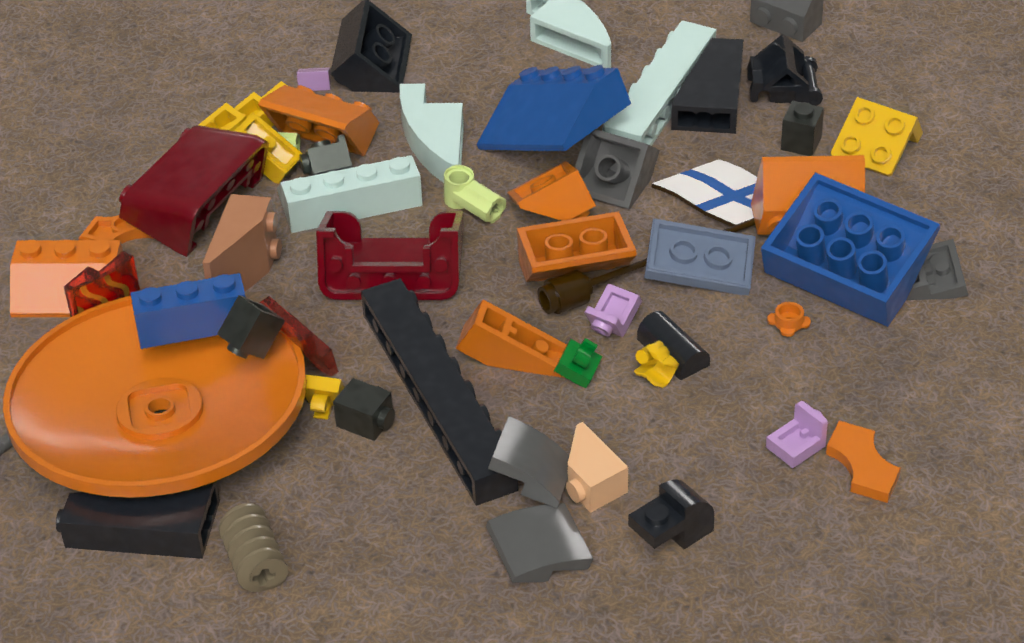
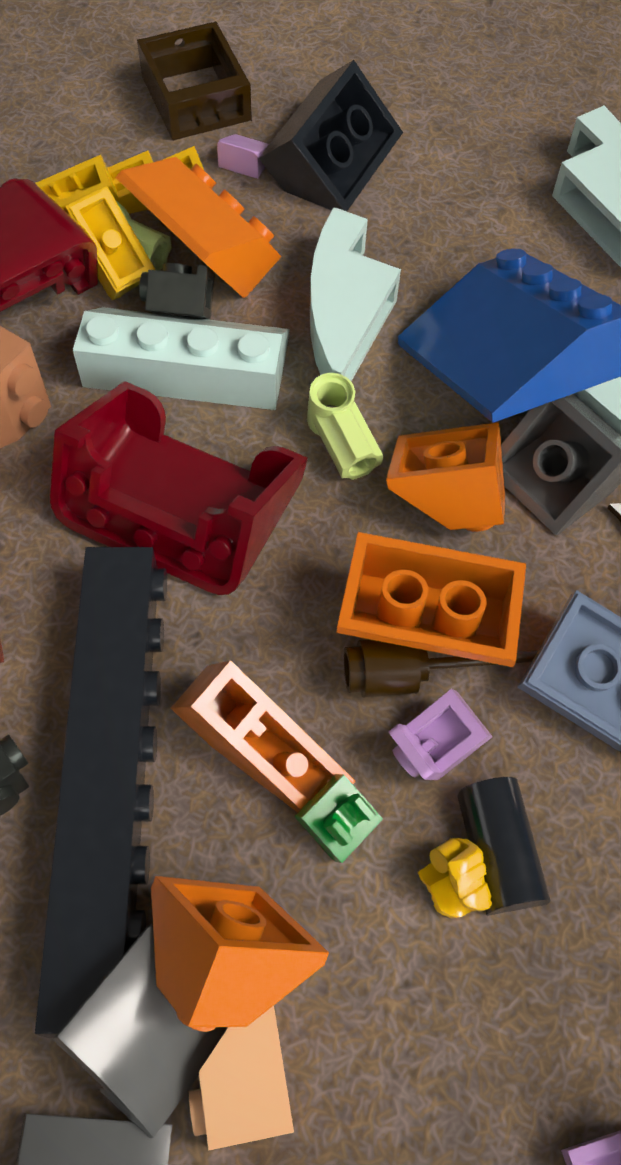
camera: 20 degrees right, 20 degrees up
(279, 53) = (203, 105): none -> dark brown window
(553, 408) = (226, 951): none -> orange slope

